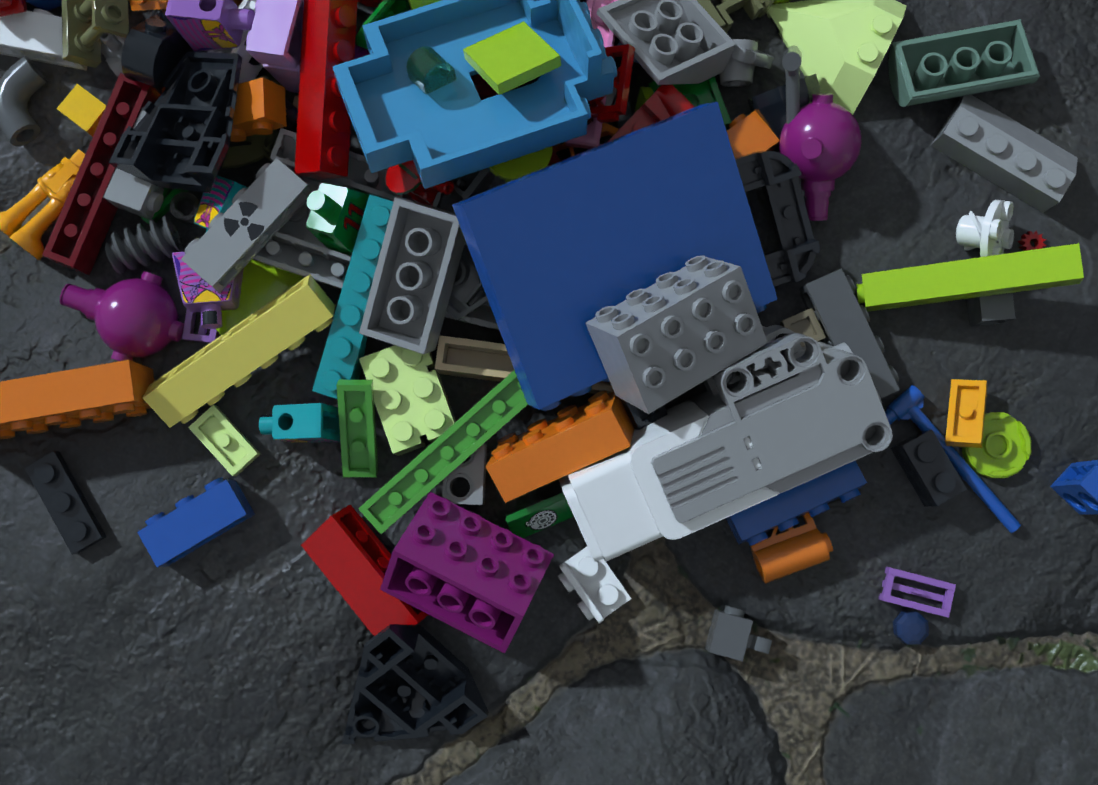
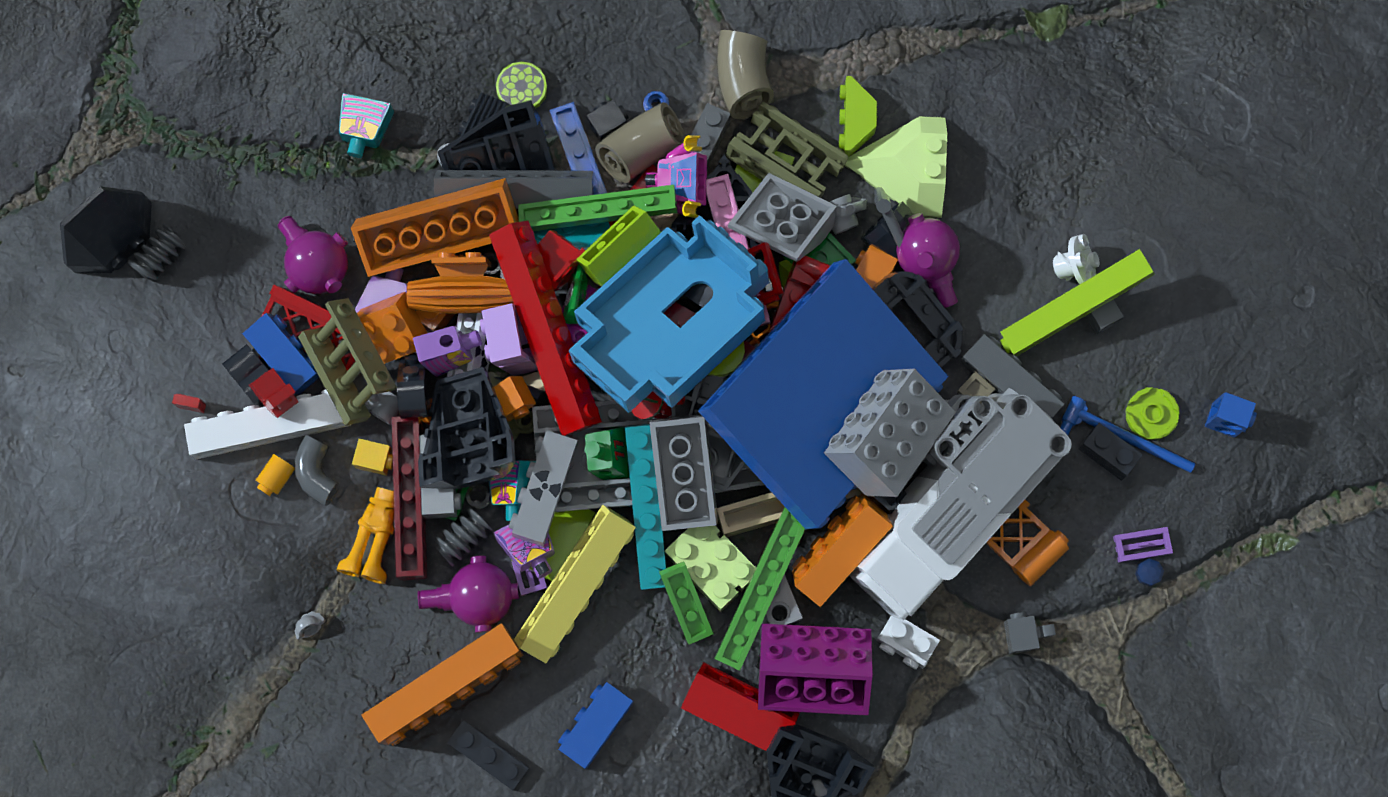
camera: 25 degrees left, 5 degrees down
(224, 440) = (588, 656): yellowish green plate -> none
(302, 423) = (653, 613): teal torso -> none
(429, 70) = (636, 323): brick -> none
(512, 57) = (689, 289): lime tile -> none
(539, 516) = (847, 608): green slope -> none
(784, 508) = (1022, 521): blue brick -> none
(961, 63) = (1003, 147): sand green brick -> none
(966, 413) = (1120, 400): light orange plate -> none
(1006, 153) = (1065, 196): light grey slope -> none
(1029, 236) = (1108, 256): red piece -> none

